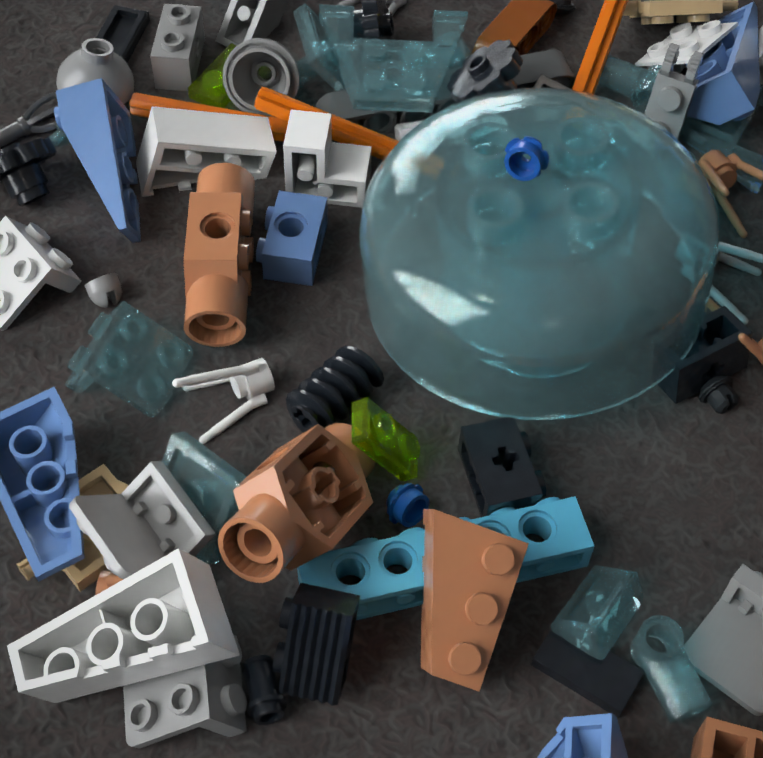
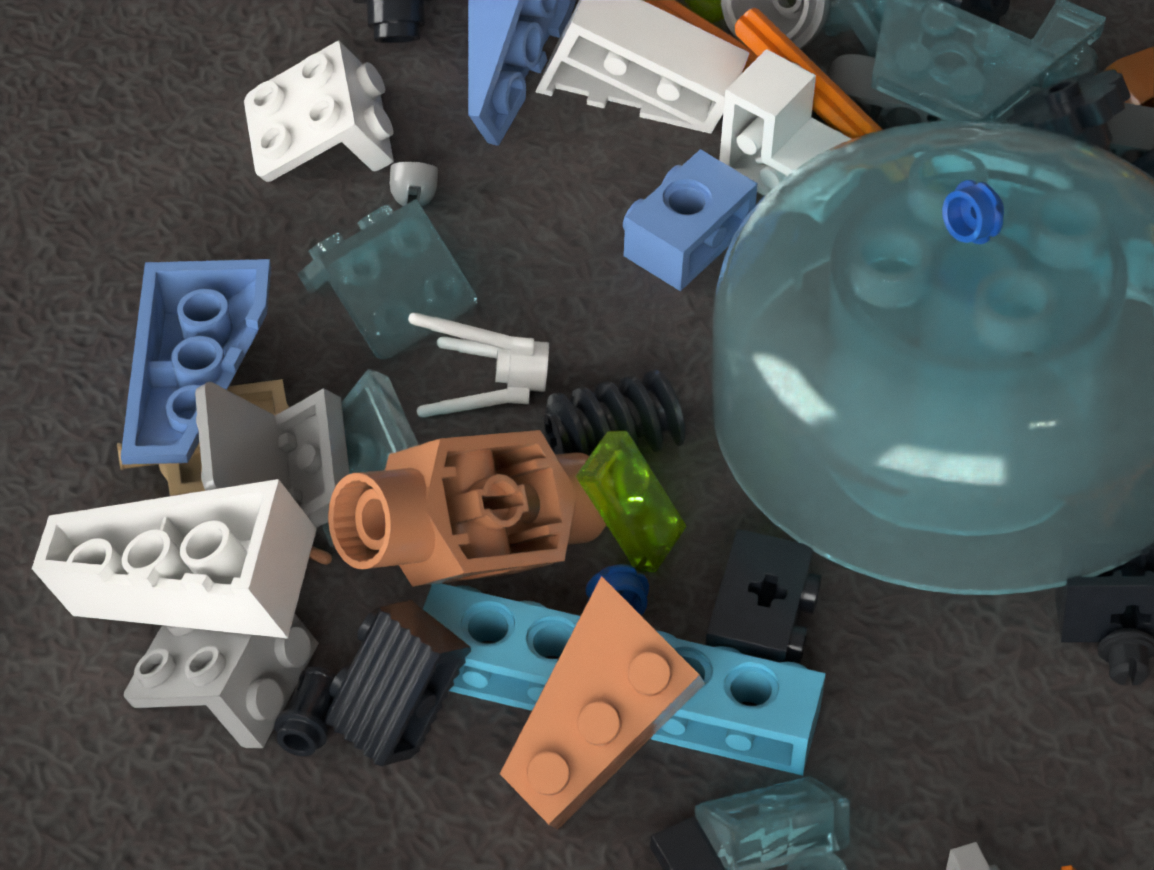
camera: 30 degrees right, 5 degrees down
(219, 255) = (571, 194): nougat brick -> none

